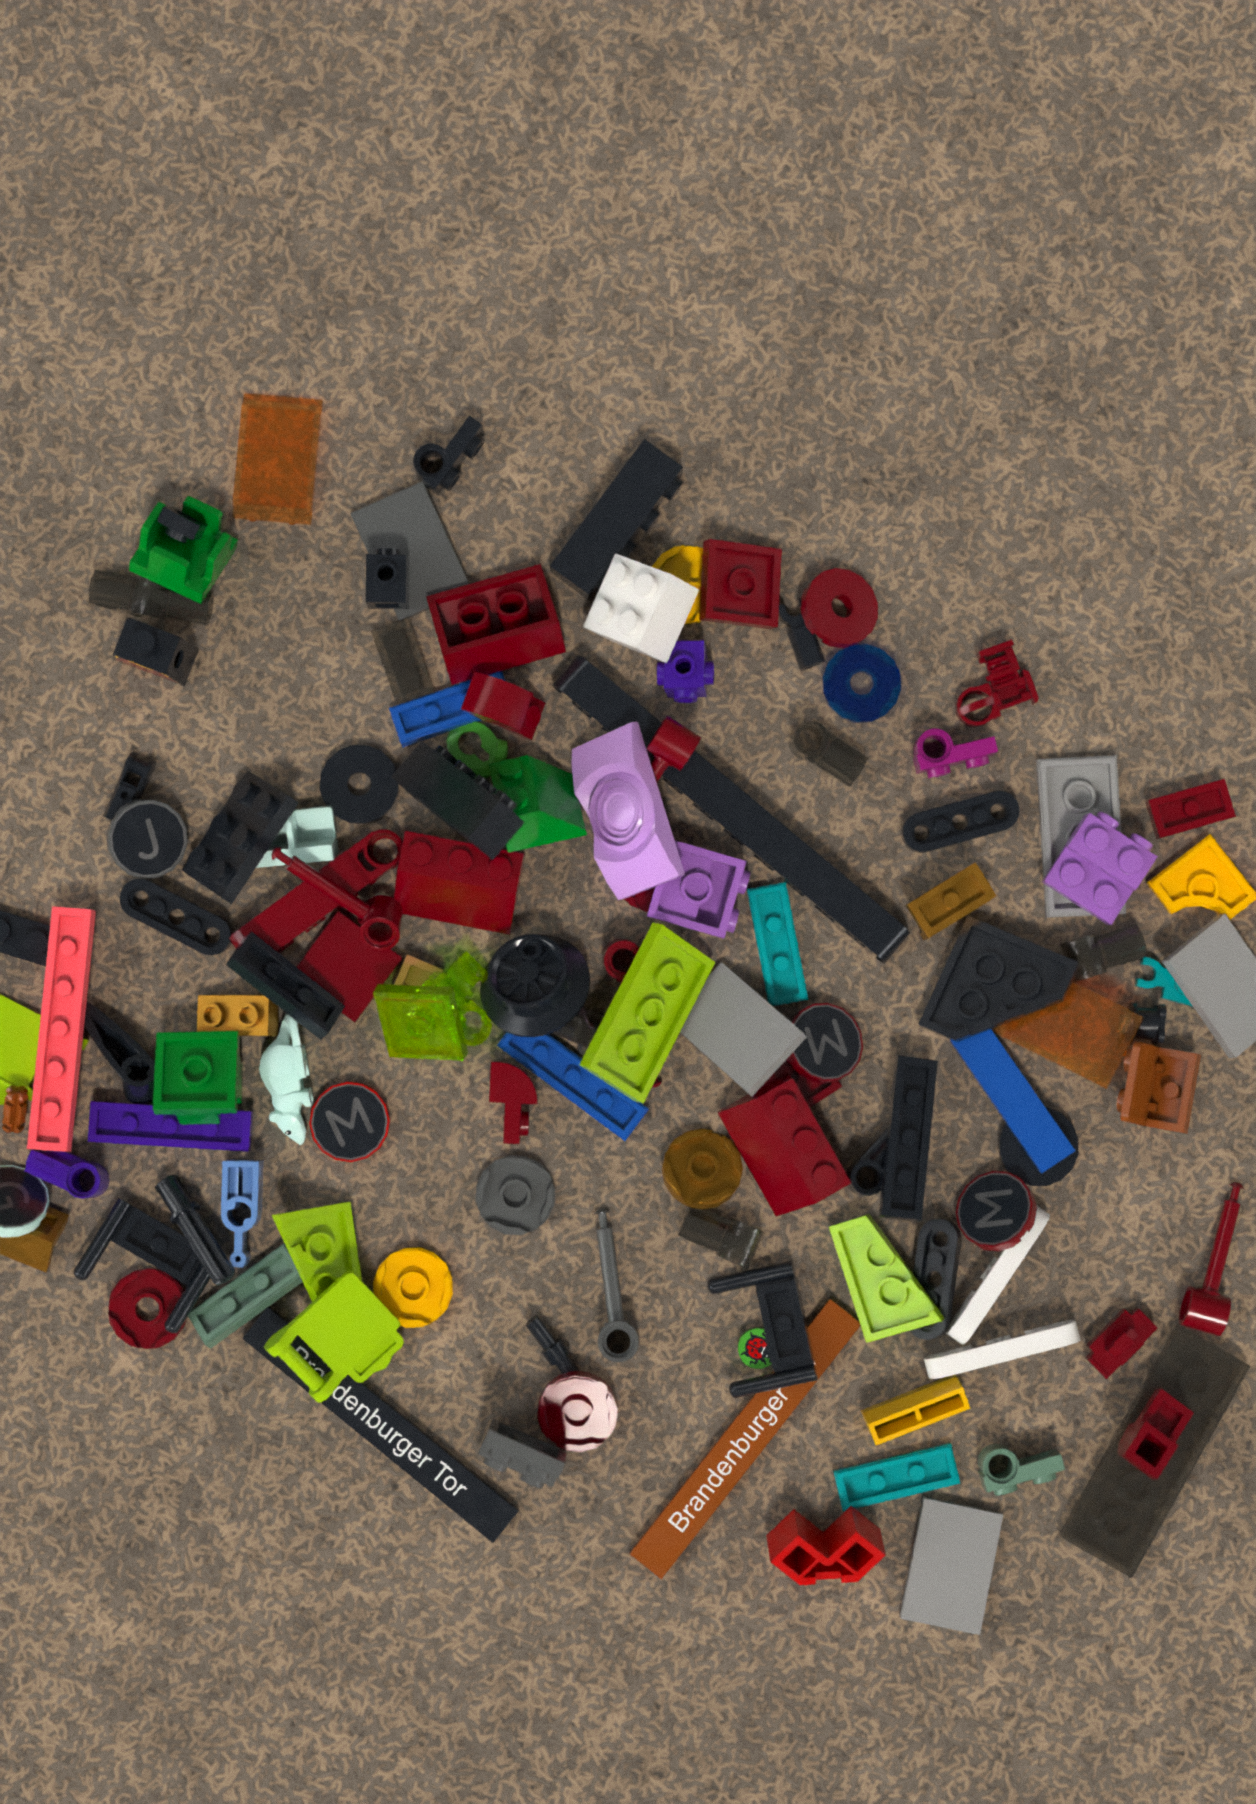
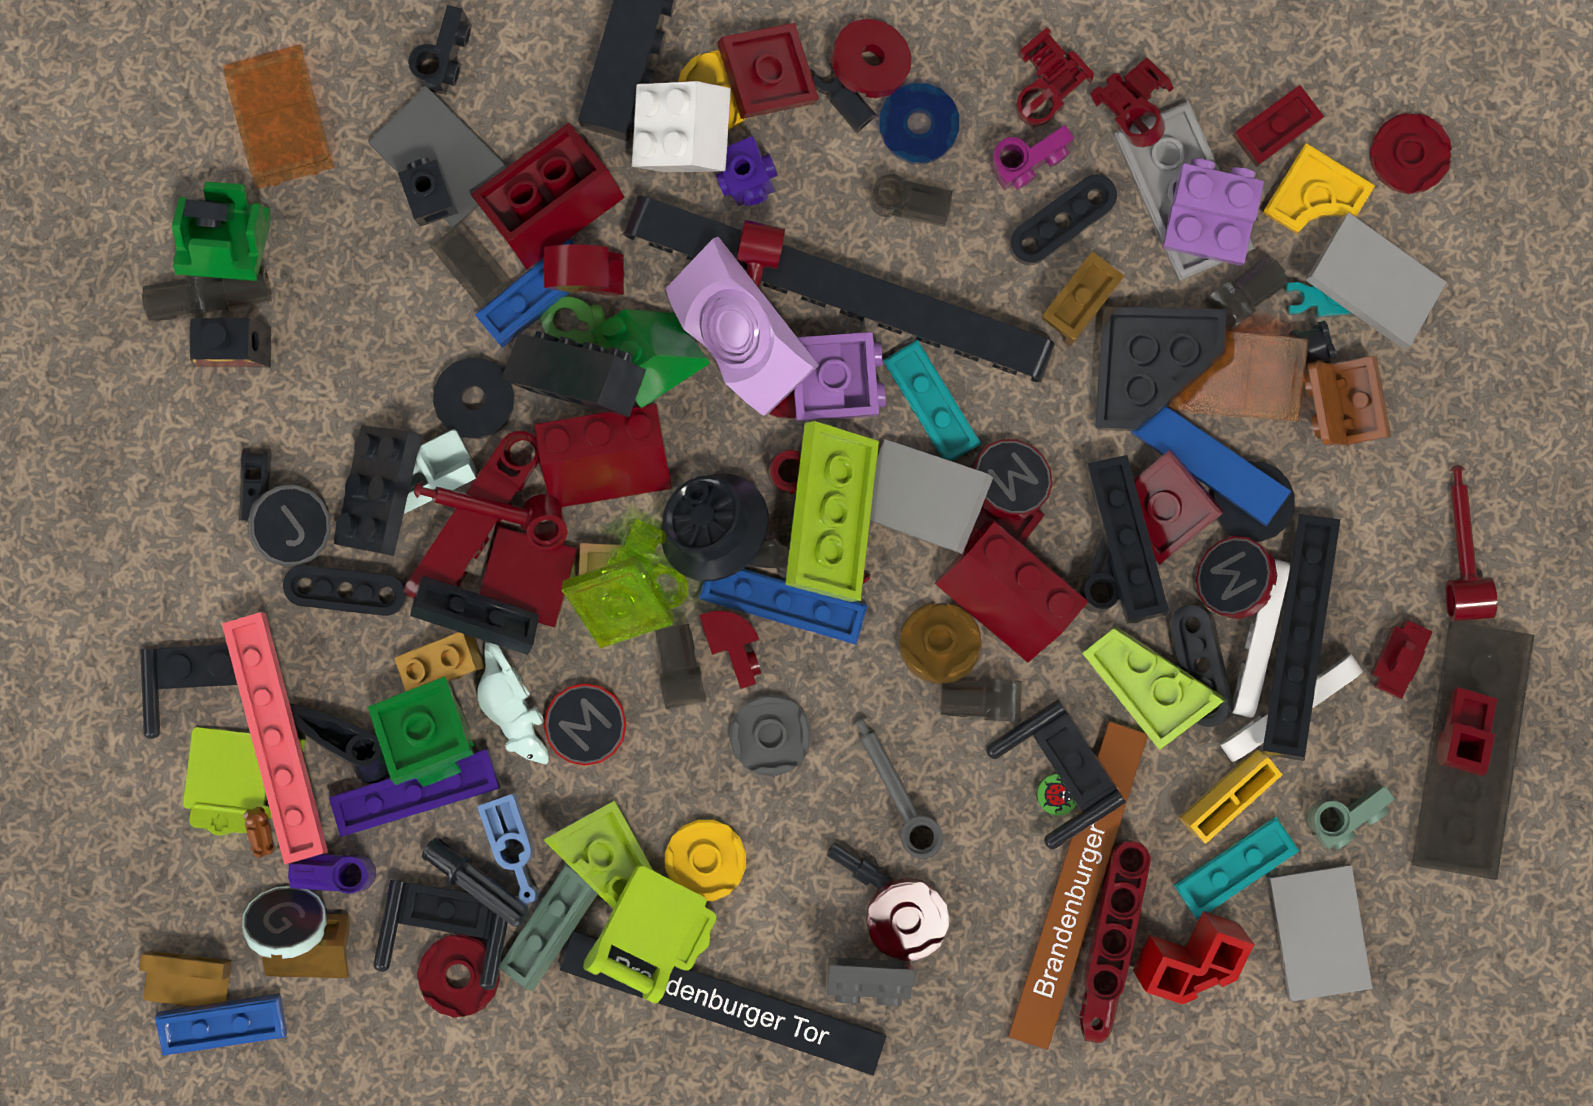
camera: 10 degrees left, 0 degrees up
(454, 1109) = (680, 675): none -> clear smoke piece
(729, 1556) = (1104, 1004): none -> dark red piece
(963, 1122) = (1173, 505): none -> dark red tile
(1034, 1288) = (1301, 637): none -> black plate
(1069, 730) = (1135, 94): none -> dark red piece

